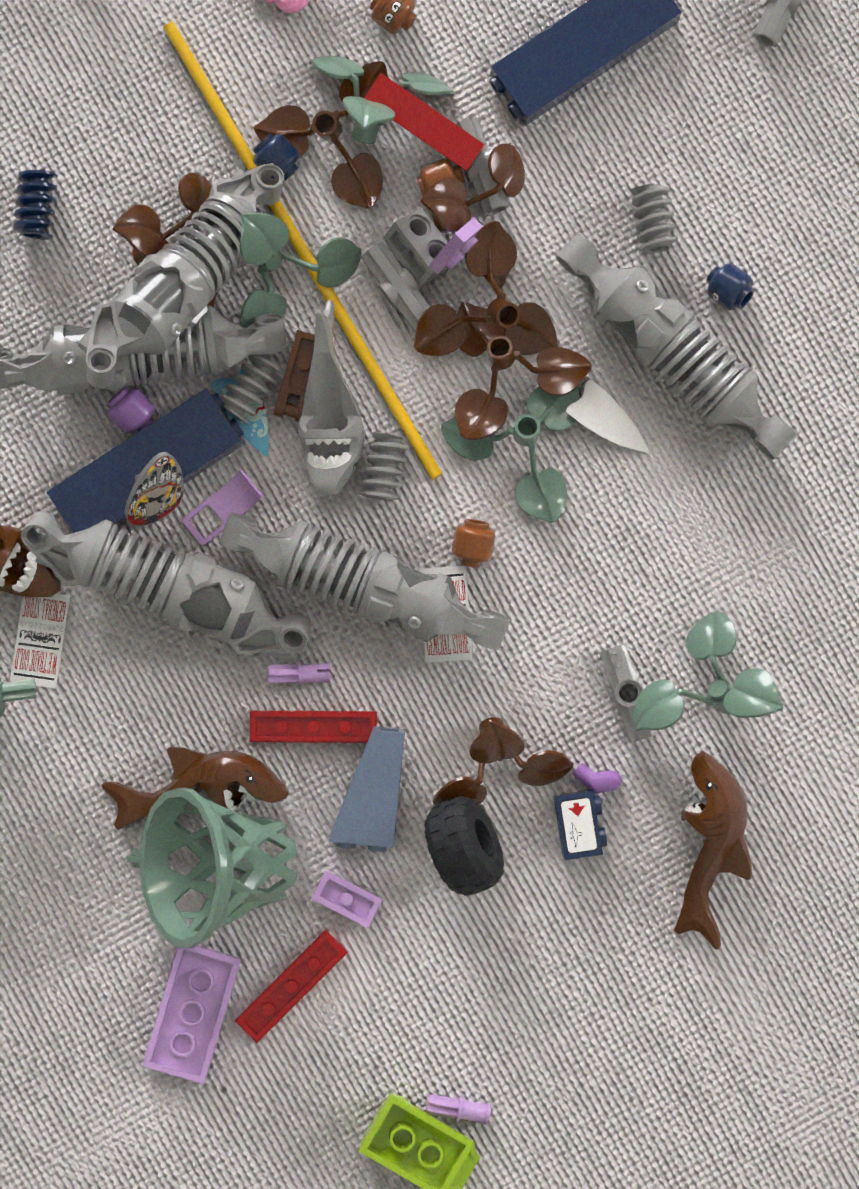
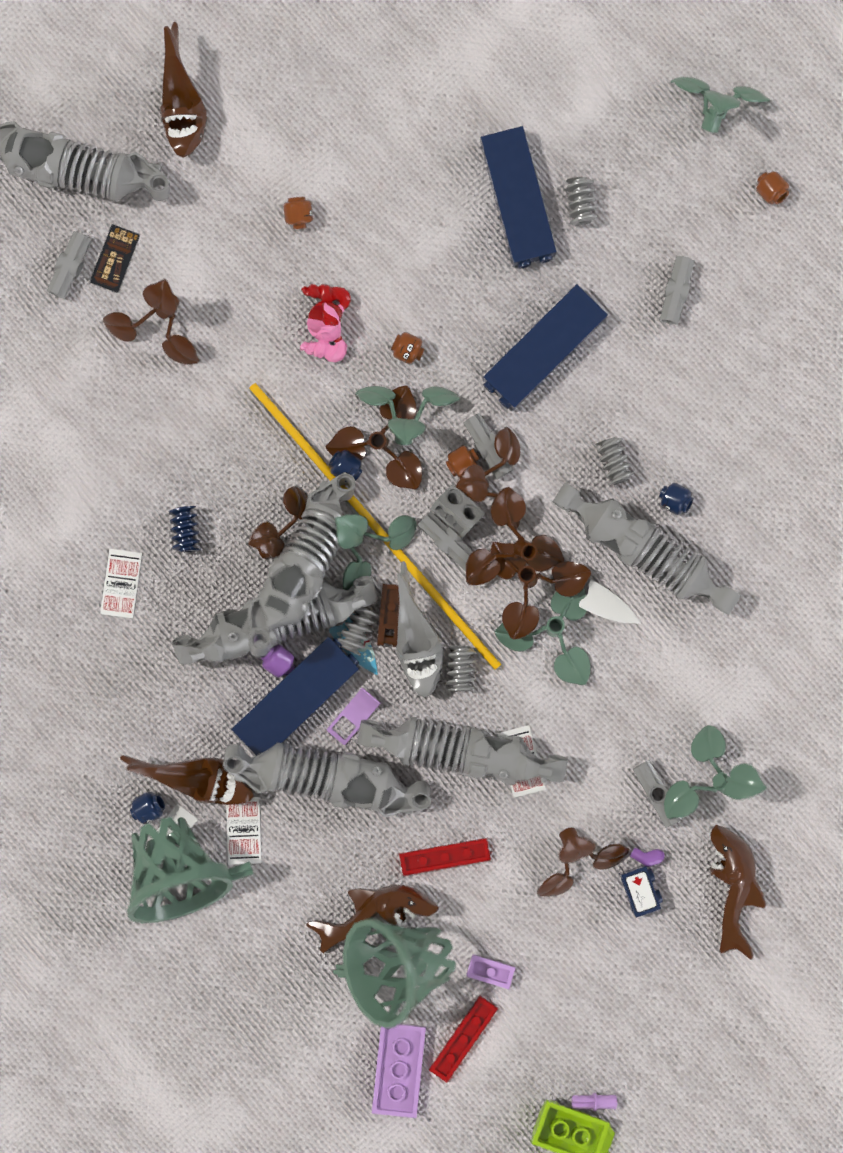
camera: 15 degrees left, 0 degrees up
(156, 491) = (307, 715): shield -> none
(298, 673) = (428, 821): lavender axle -> none
(372, 798) = (495, 897): sand blue slope -> none
(426, 123) = (445, 425): red tile -> none
(460, 242) = (484, 510): lavender plate -> none
(464, 846) = (565, 921): black tyre -> none
(473, 542) = (532, 709): dark orange head -> none

